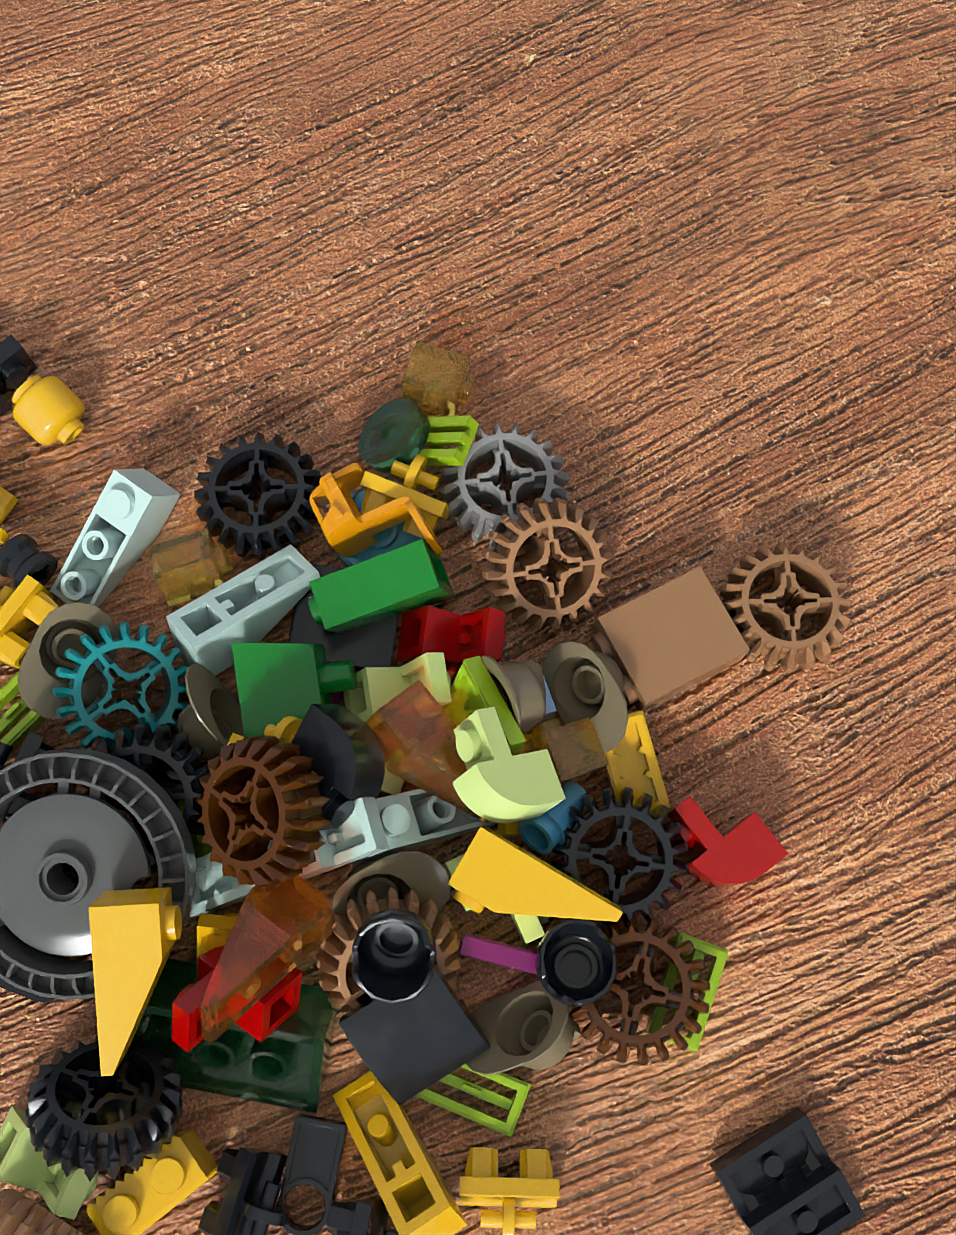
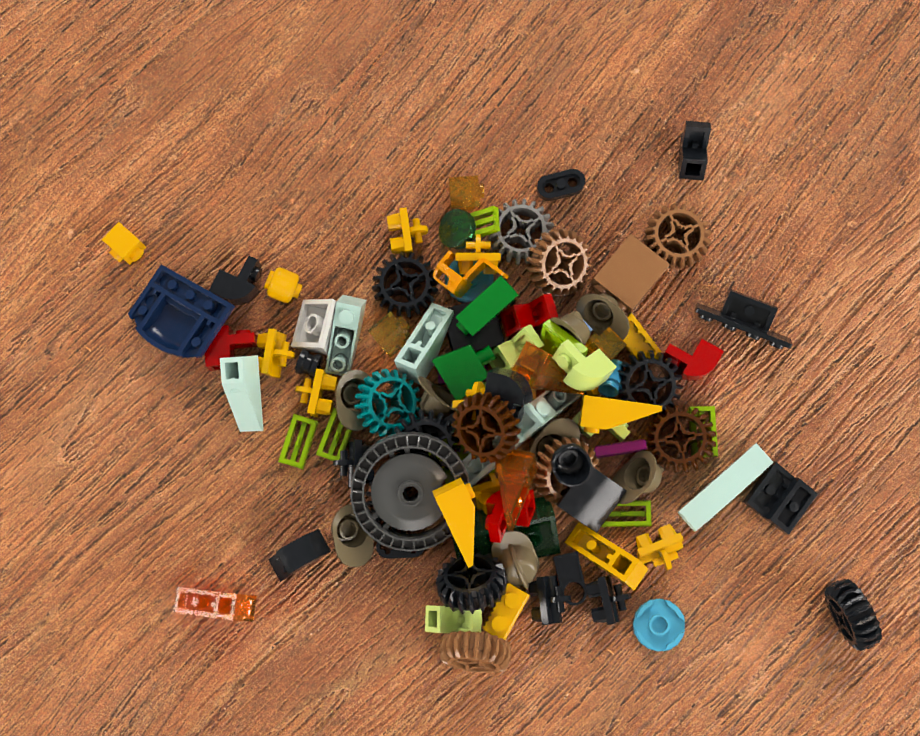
camera: 15 degrees left, 5 degrees up
(66, 503) = (314, 325): none -> white slope
(220, 1094) = (517, 557): none -> dark tan piece
(306, 389) = (401, 222): none -> yellow hips
(576, 962) = (650, 436): black hair -> none
(611, 431) = (560, 185): none -> black plate
(685, 1123) = (725, 487): none -> light aqua slope
(860, 805) = (747, 315): none -> black bracket
(876, 466) = (693, 150): none -> black brick

